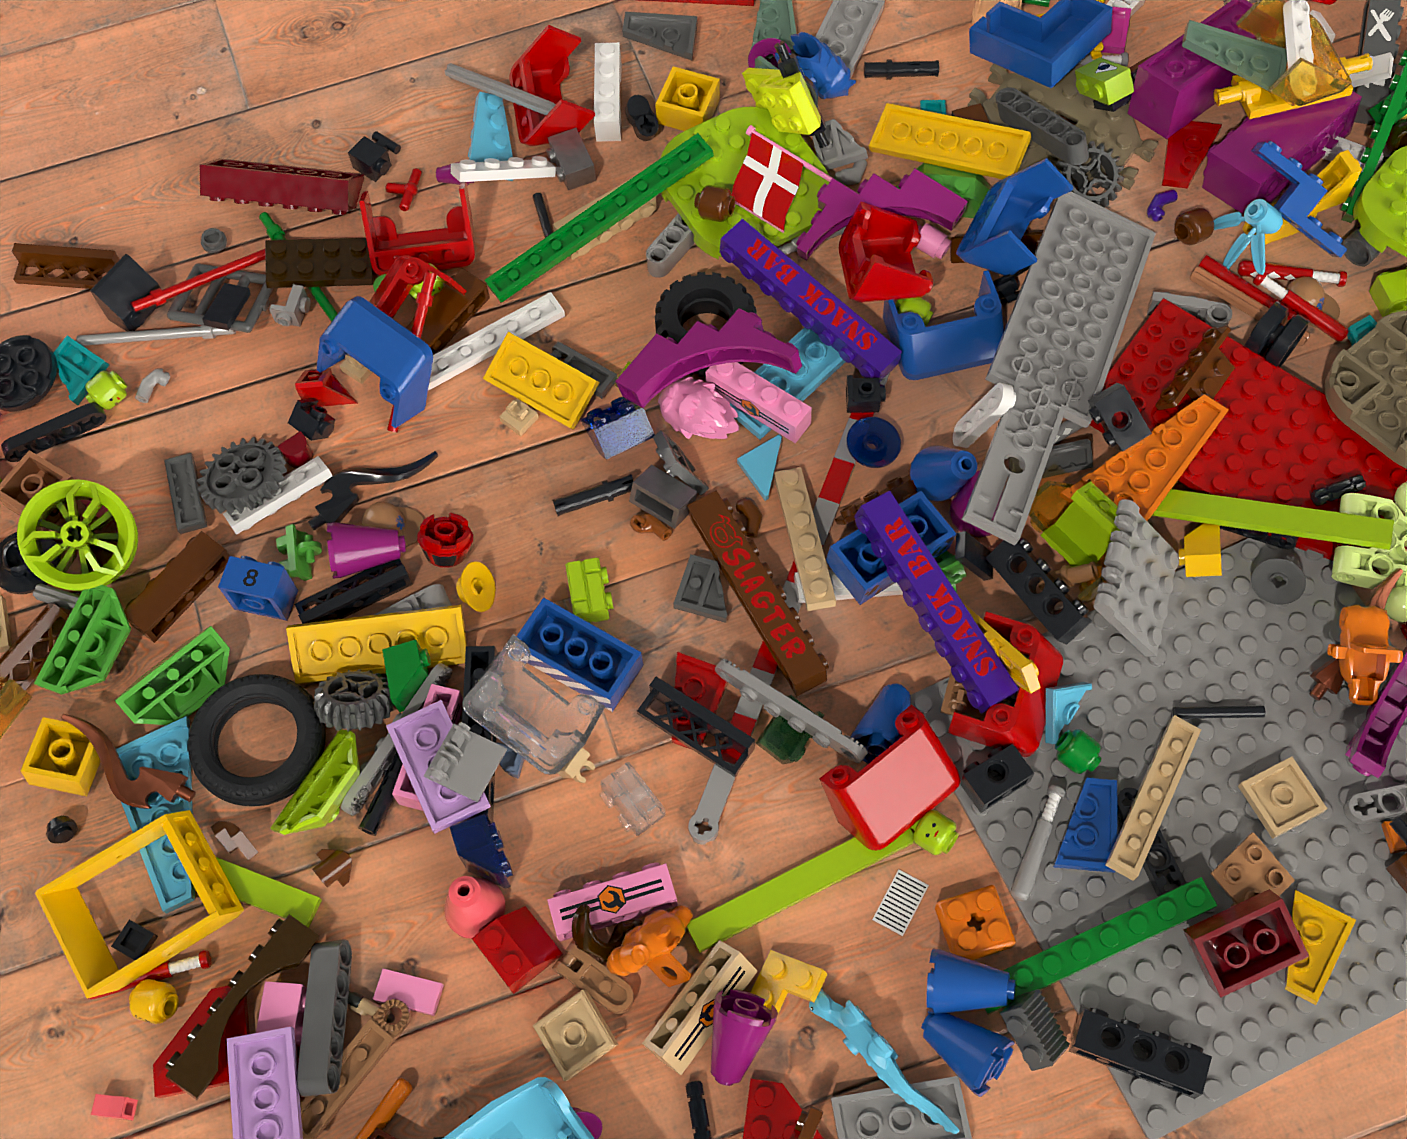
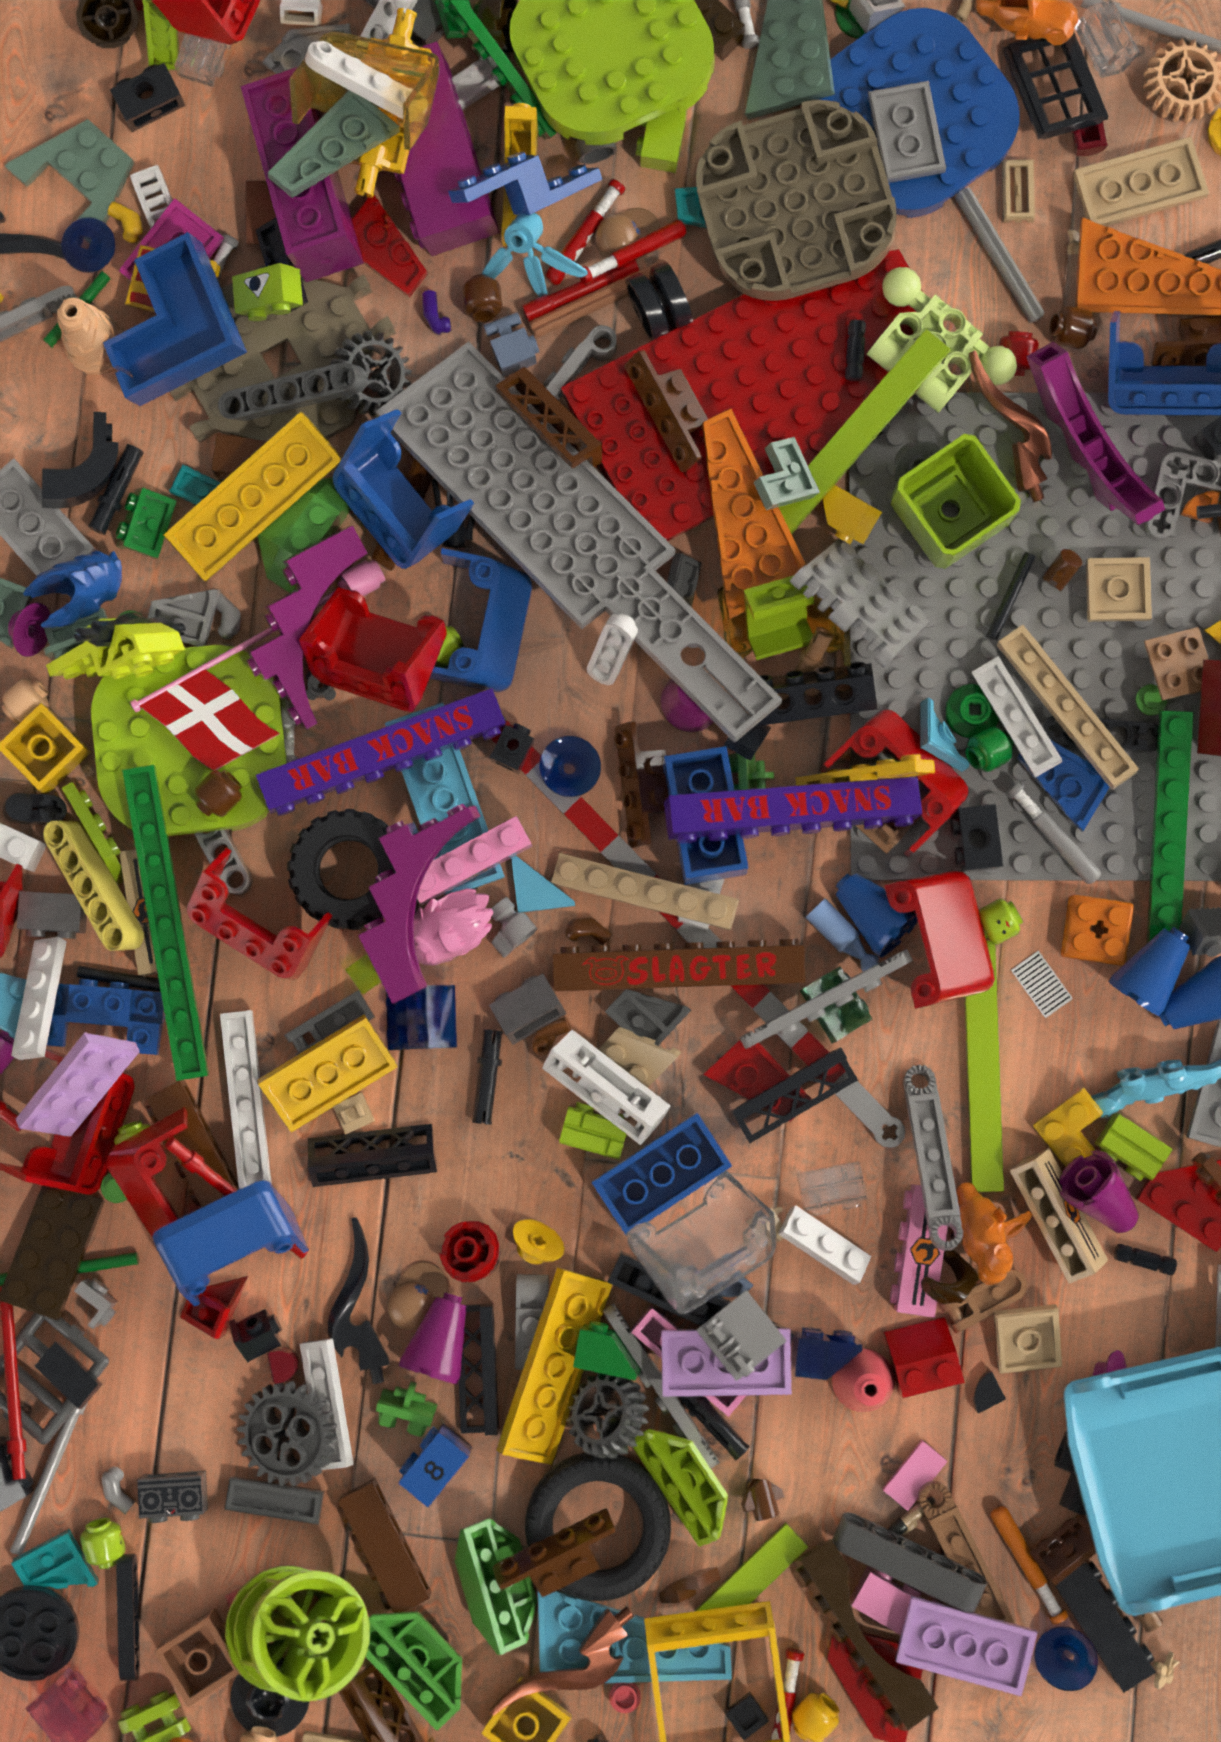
camera: 65 degrees left, 20 degrees up
(116, 830) = (625, 1697): none -> coral plate
(161, 420) = (172, 1495): none -> brick
(214, 710) = (557, 1558): none -> reddish brown bracket
(449, 211) = (77, 1084): none -> lavender plate
(486, 442) = (371, 1160): none -> black fence
(510, 1023) = (987, 1392): none -> black tile
(516, 213) = (110, 1006): none -> blue bracket
(578, 815) = (824, 1245): none -> white plate
(604, 168) = (93, 885): none -> light yellow beam
(618, 296) = (281, 954): none -> red windscreen
(628, 578) = (606, 1086): none -> white brick
(646, 152) = (95, 826): none -> lime wing
(665, 595) = (638, 1055): none -> tan wing
(677, 463) = (494, 976): dark grey wing -> none
(697, 867) = (933, 1157): none -> light grey plate
(721, 71) = (23, 699): none -> light nougat head
(724, 461) = (515, 927): none -> light grey piece
(796, 1049) = (1133, 1147): none -> lime brick
(829, 250) = (315, 692): none -> dark grey plate
(854, 702) = (840, 933): none -> light blue wheel
(895, 91) = (145, 522): none -> green bracket
(900, 46) = (79, 484): none -> black arch
(942, 471) = (647, 720): blue cone -> none
(1118, 727) = (958, 711): none -> green piece
(1119, 758) = (1017, 717): none -> white plate
(1130, 429) = (702, 520): black brick -> none
(1140, 301) = (551, 412): none -> reddish brown fence
(1171, 262) = (514, 348): none -> sand blue brick
(1200, 482) = (791, 479): none -> sand green plate
(1202, 868) = (1149, 700): none -> bright green plate
(1269, 740) = (1062, 569): none -> reddish brown piece
(1282, 600) = (971, 481): none -> lime plate
(1364, 651) = (1031, 435): orange piece -> none

